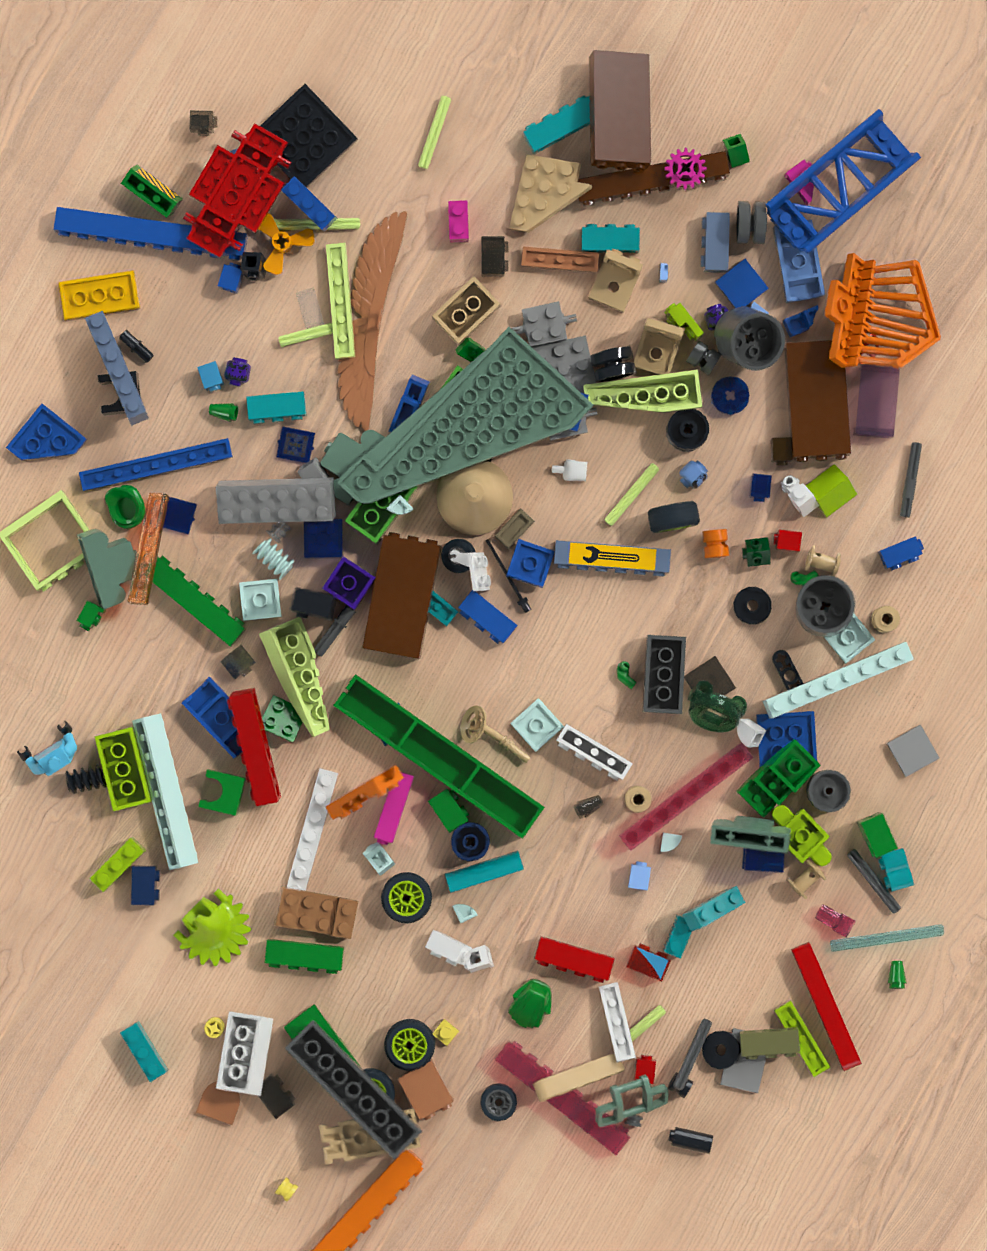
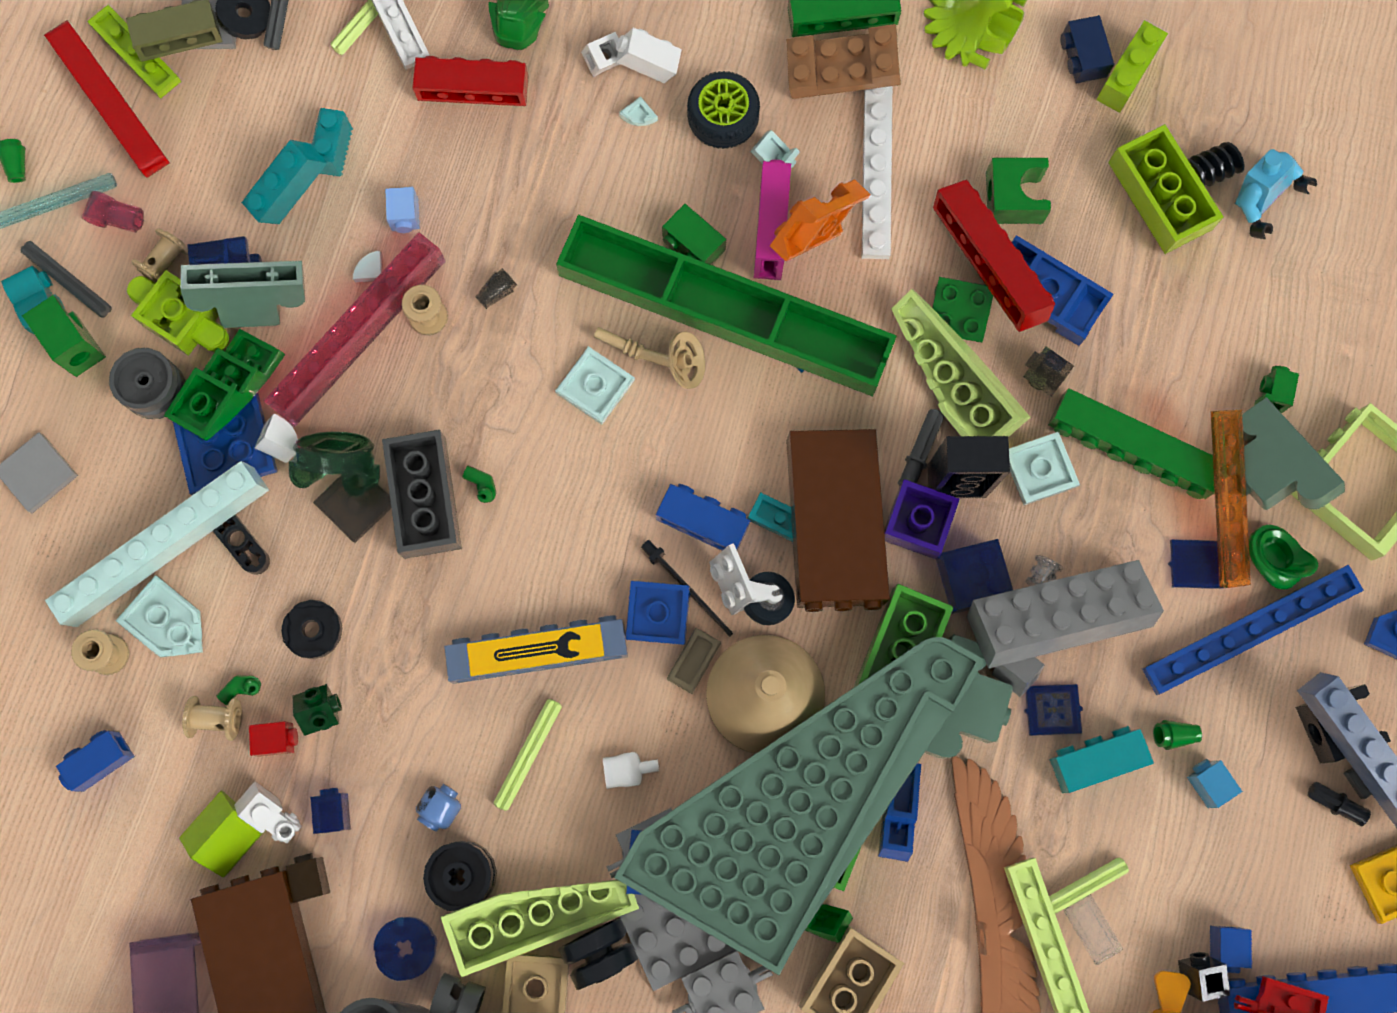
camera: 165 degrees right, 10 degrees down
(165, 791) = (1098, 174): light aqua brick -> none
(237, 371) = (1175, 801): dark purple head -> none
(274, 558) = (1039, 531): light aqua piece -> none
(400, 506) = (876, 646): light aqua tile -> none
(470, 852) = (640, 198): dark blue brick -> none
(484, 871) = (623, 167): teal brick -> none
(593, 751) = (502, 361): white brick -> none
(648, 962) = (367, 100): clear red brick -> none
(673, 516) = (453, 731): black wheel -> none
(715, 543) = (382, 707): orange wheel -> none
(829, 591) = (167, 646): dark grey brick -> none
(910, 481) = (97, 881): dark grey axle -> none

